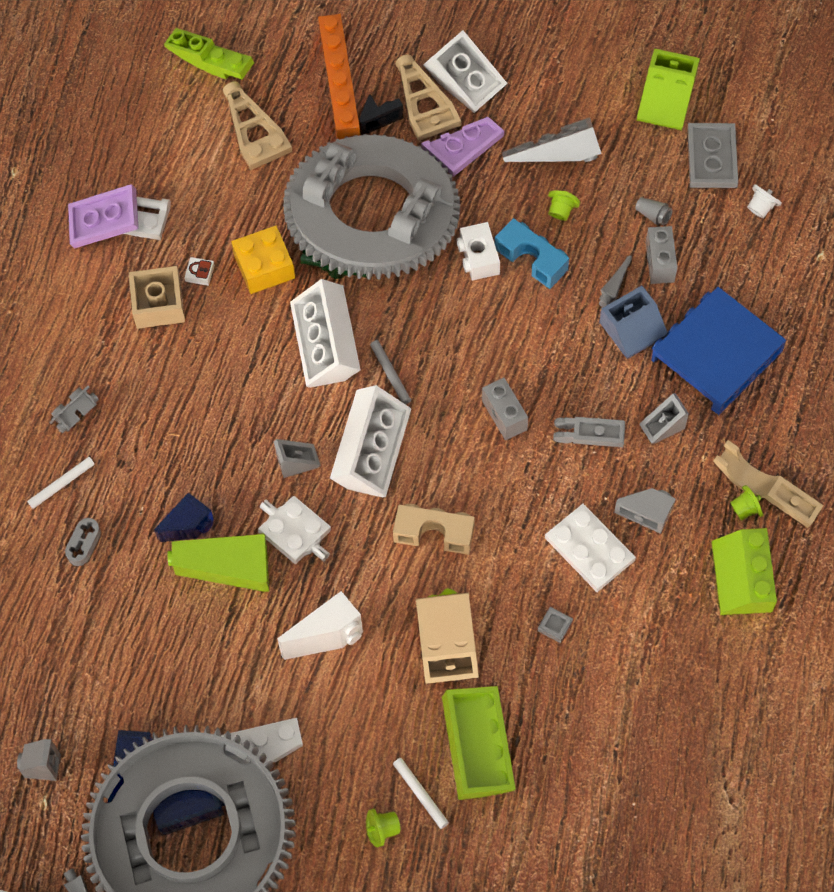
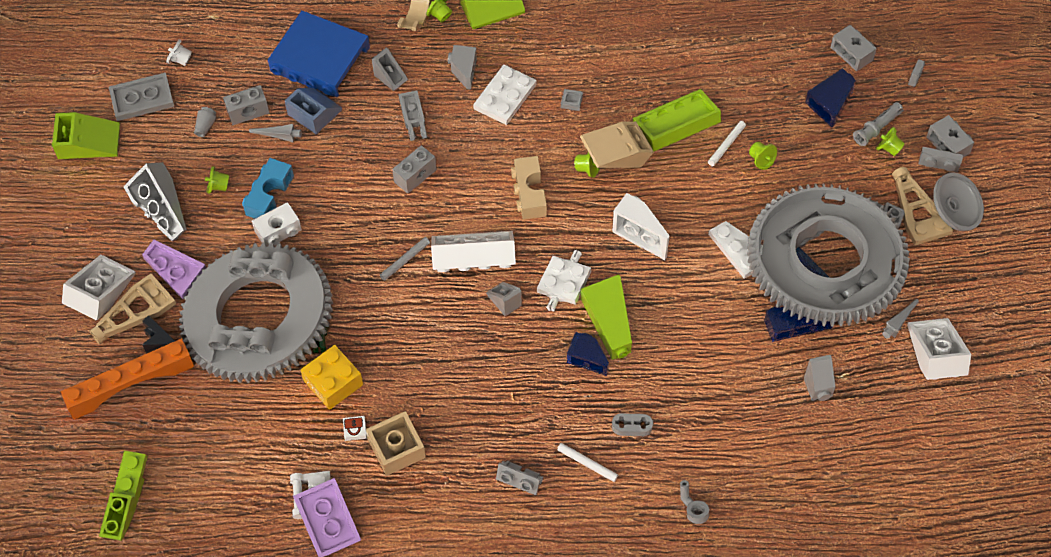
camera: 110 degrees left, 5 degrees down
(263, 149) = (212, 417): tan plate -> none
(324, 334) = (388, 311): white slope -> none

